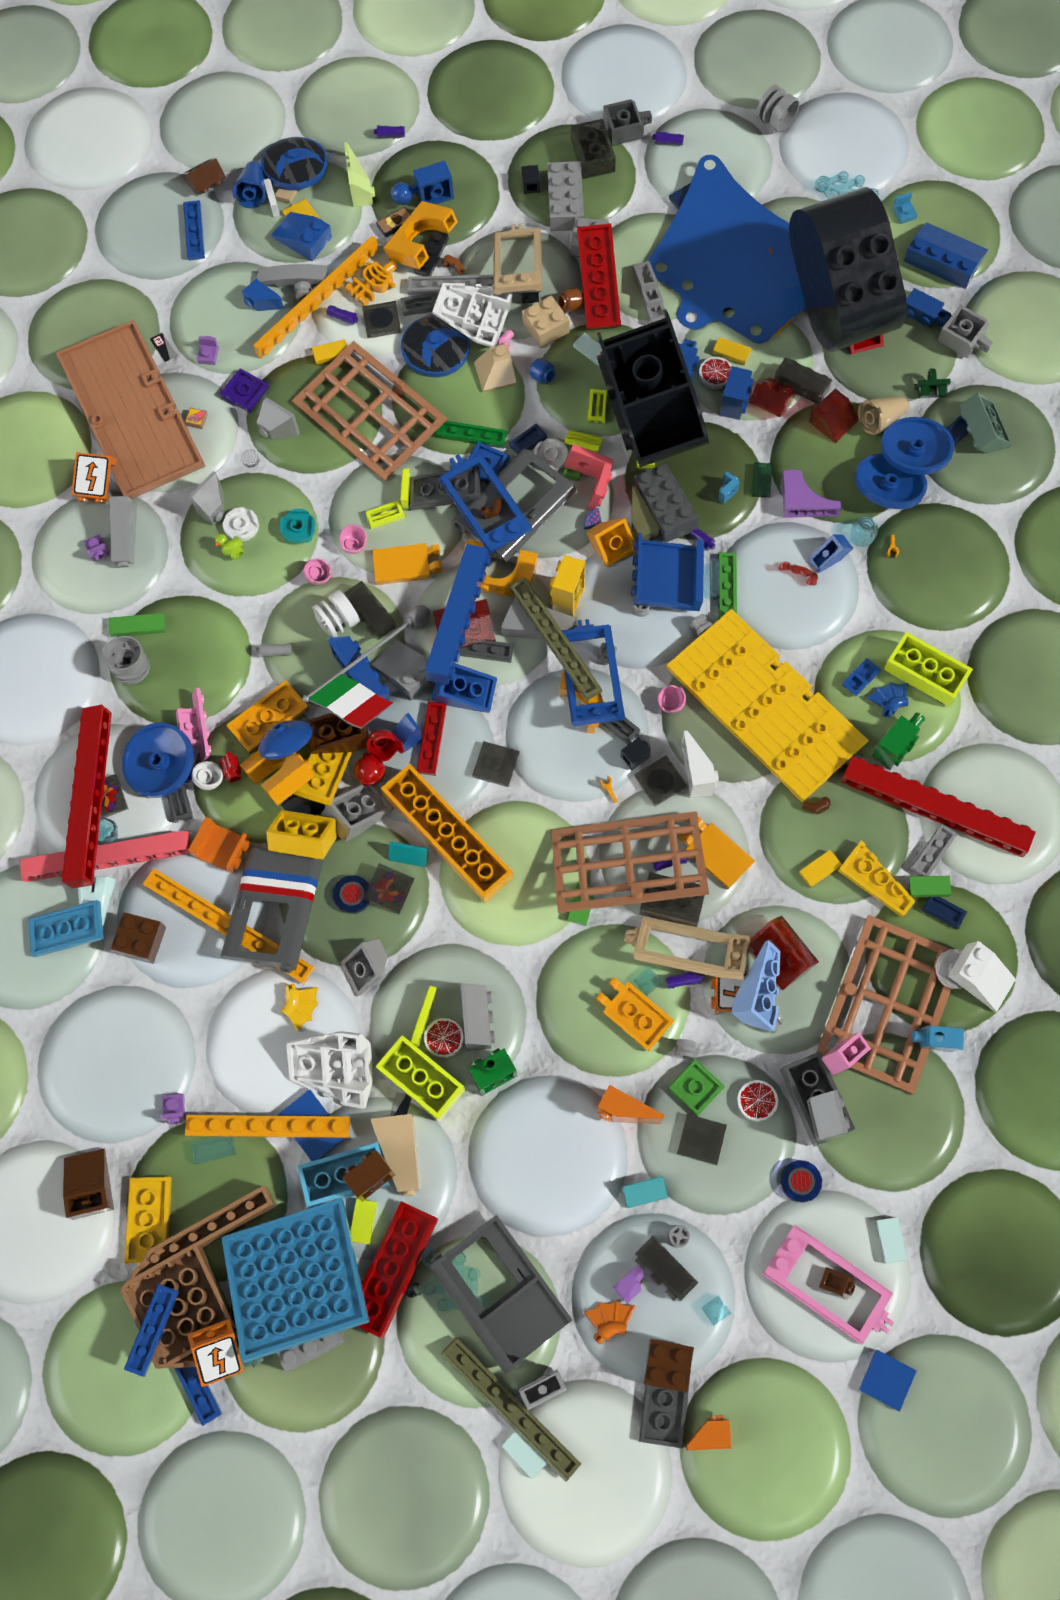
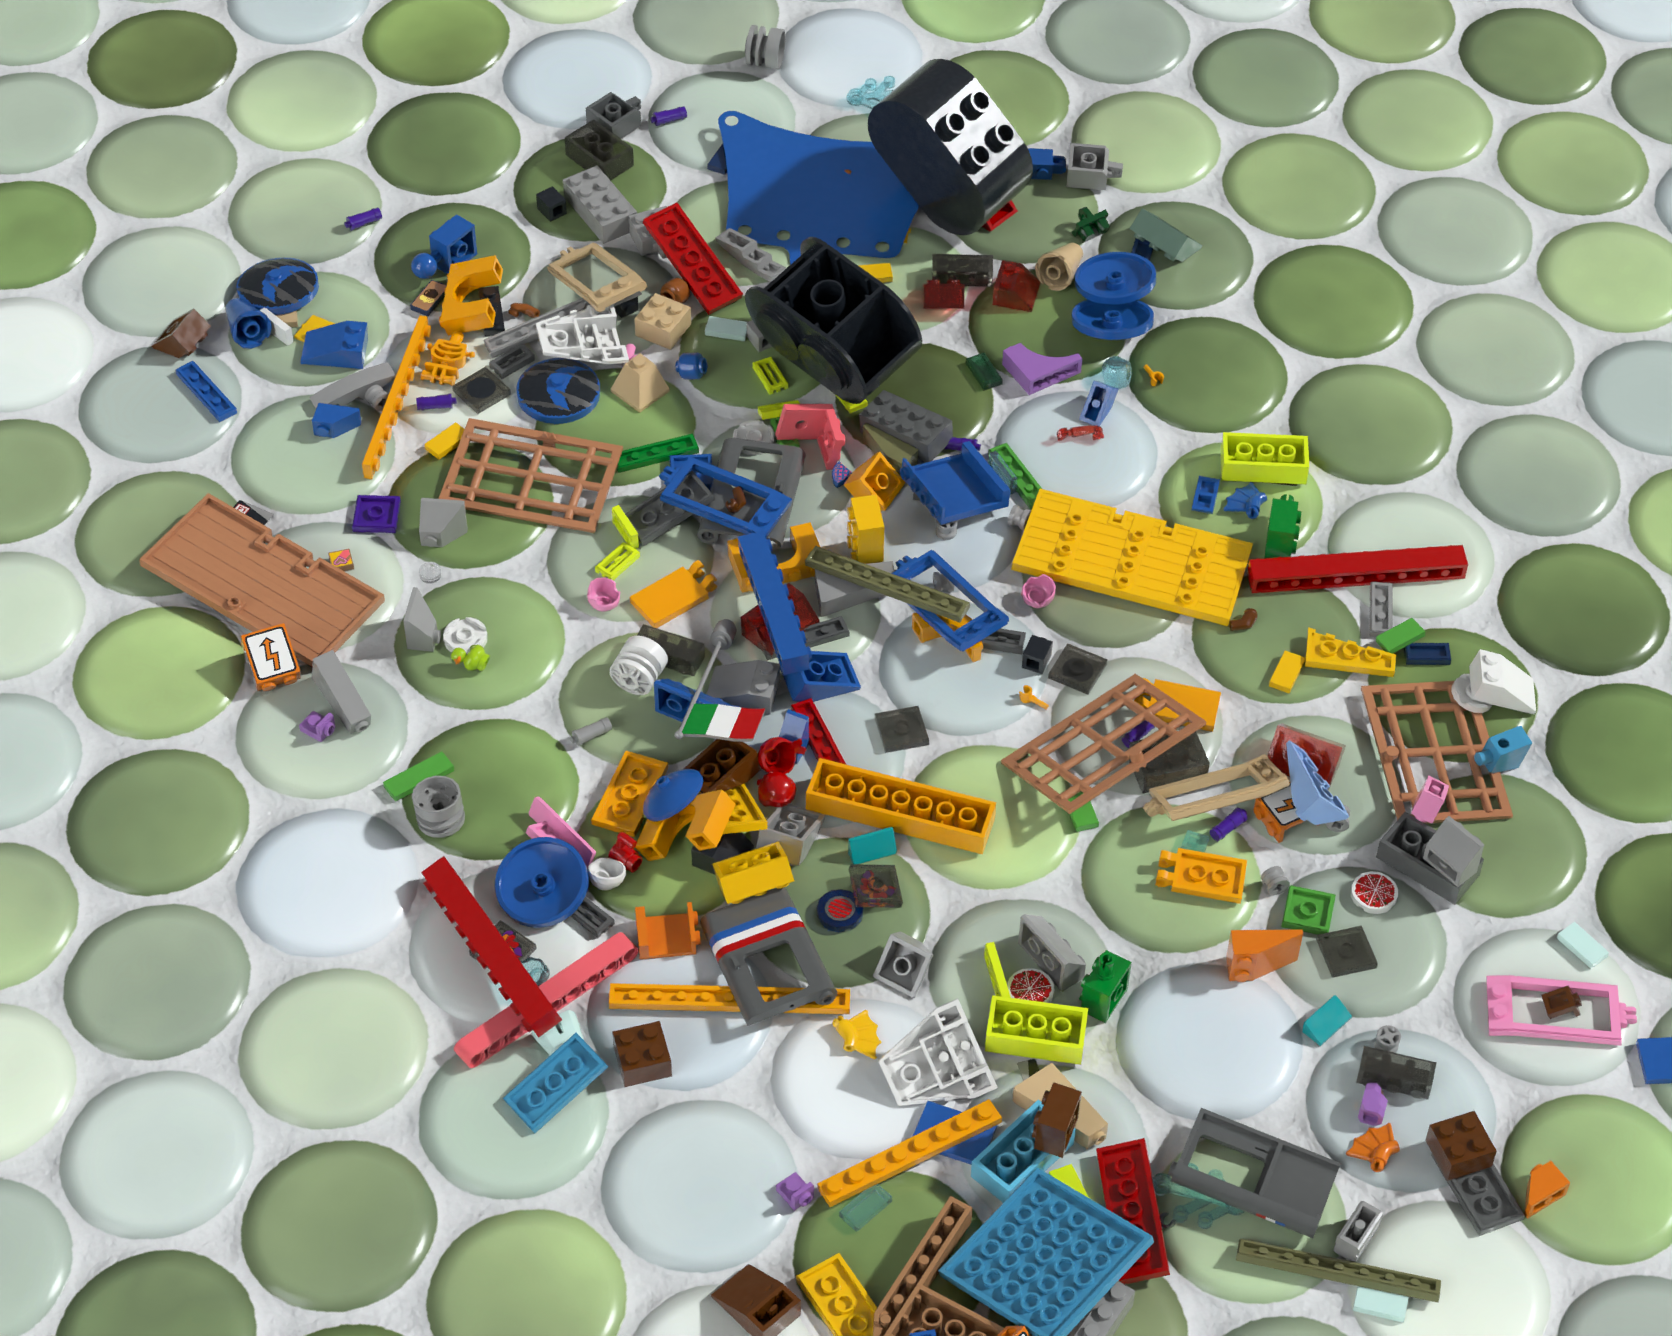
camera: 35 degrees left, 20 degrees down
(208, 350) = (308, 493): medium lavender bracket -> none
(301, 535) = (532, 620): teal plate -> none
(317, 571) = (586, 640): bright pink hair -> none
(358, 180) = (362, 274): yellowish green wedge -> none
(528, 439) = (721, 430): dark blue tile -> none
(700, 772) = (1108, 634): white slope -> none
(716, 1310) = (1468, 1086): clear light blue tile -> none
(730, 487) = (958, 387): dark azure bracket -> none
(736, 393) = (910, 292): blue brick -> none
(801, 1181) = (1465, 938): tile -> none
(945, 255) = (1030, 111): blue slope -> none

